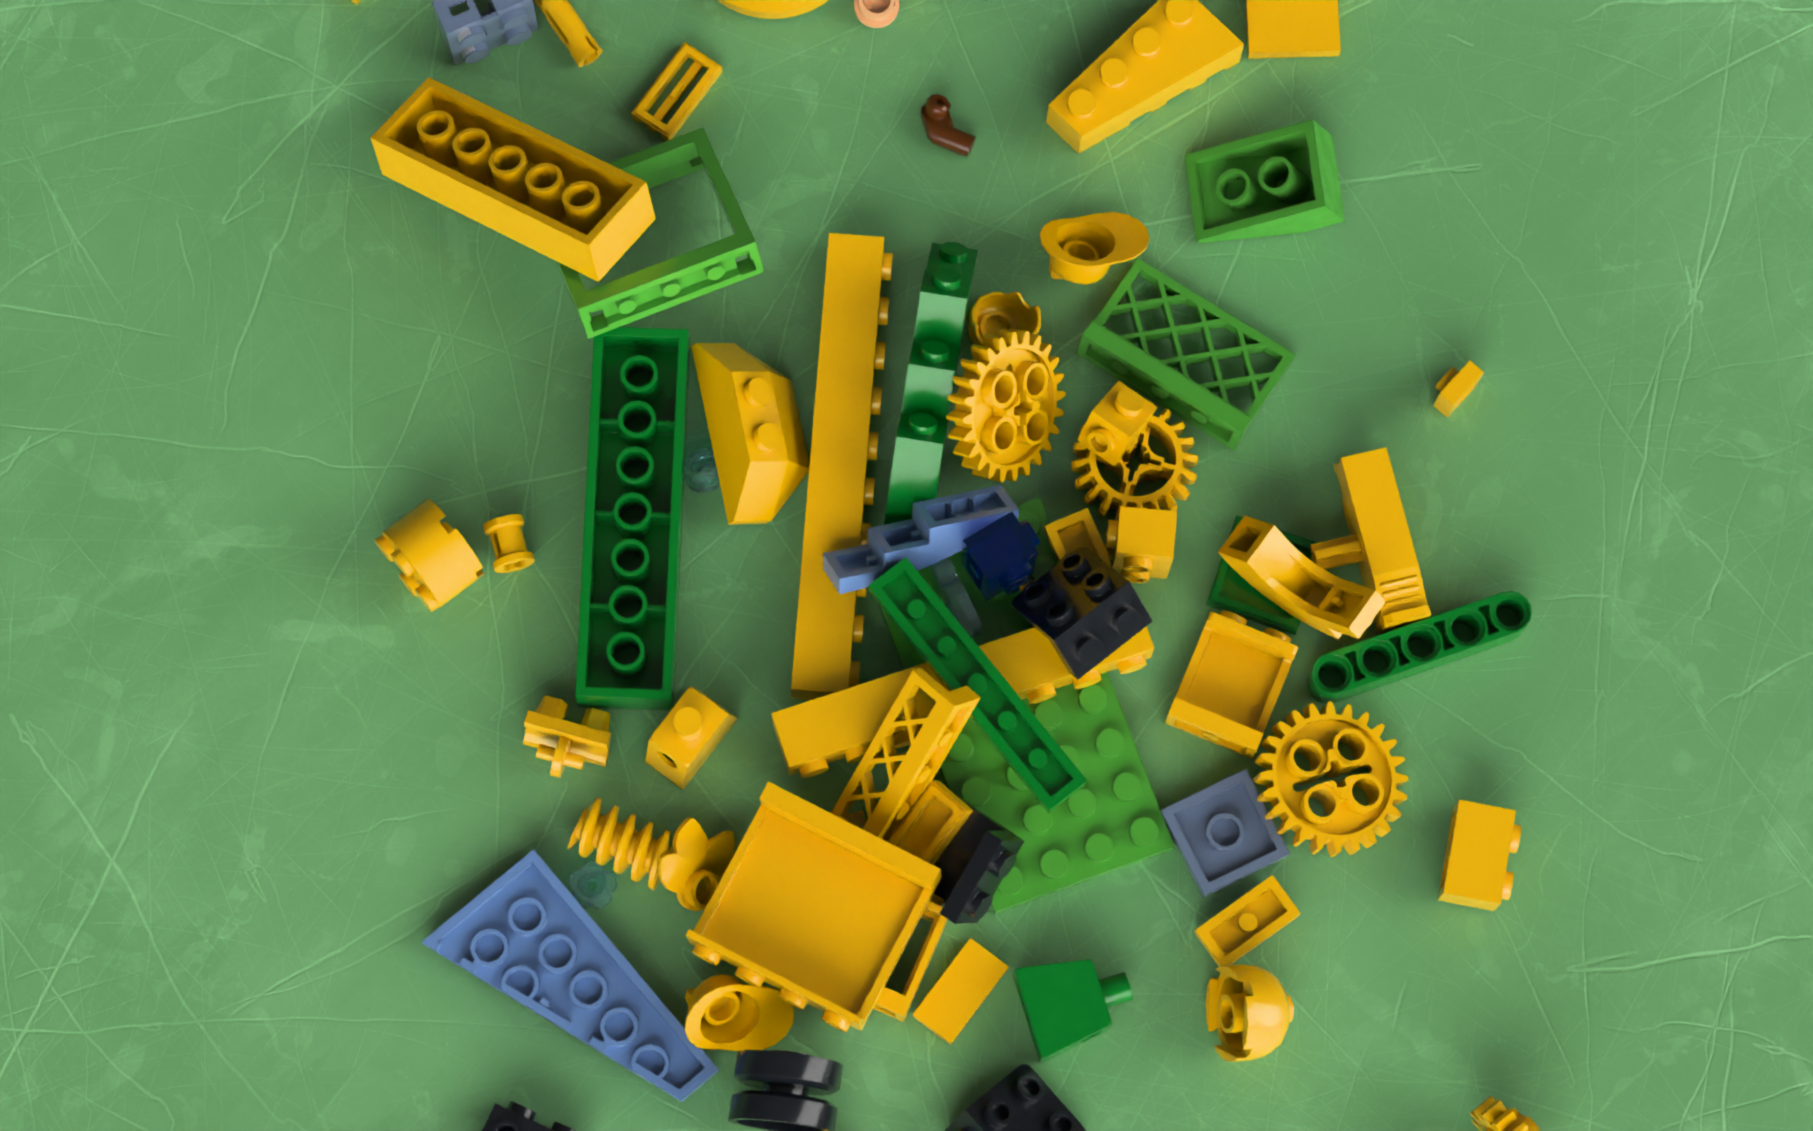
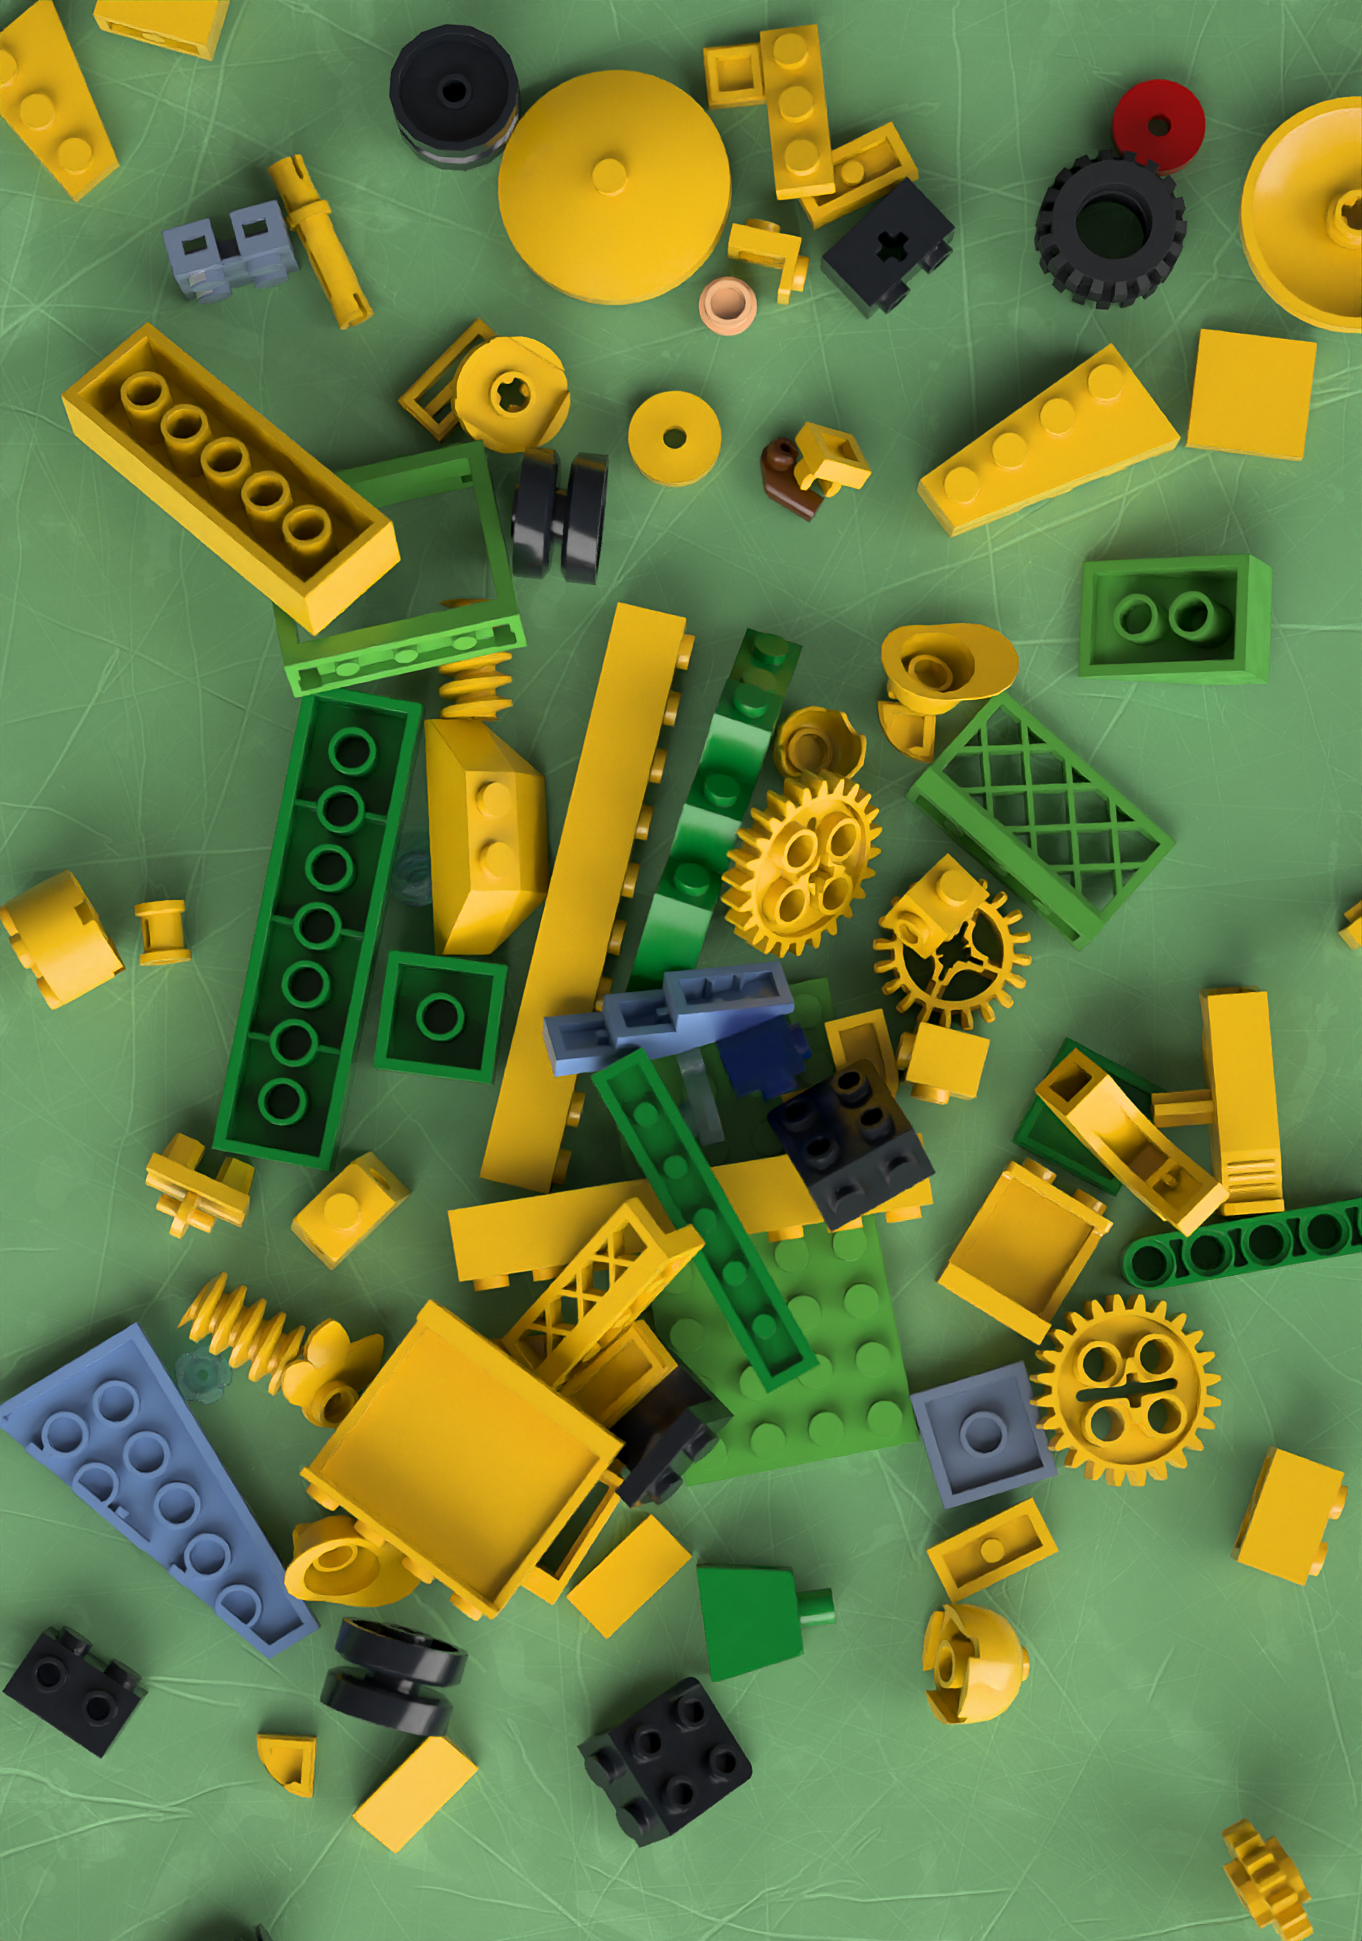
camera: 15 degrees right, 10 degrees up
(724, 312) = (474, 682): none -> yellow piece
(741, 572) = (441, 1017): none -> green brick
(743, 83) = (543, 385): none -> yellow plate
(772, 174) = (556, 515): none -> black wheel
(851, 90) = (679, 412): none -> yellow piece
(975, 102) = (831, 458): none -> yellow tile
(1070, 301) = (908, 731): none -> yellow tile

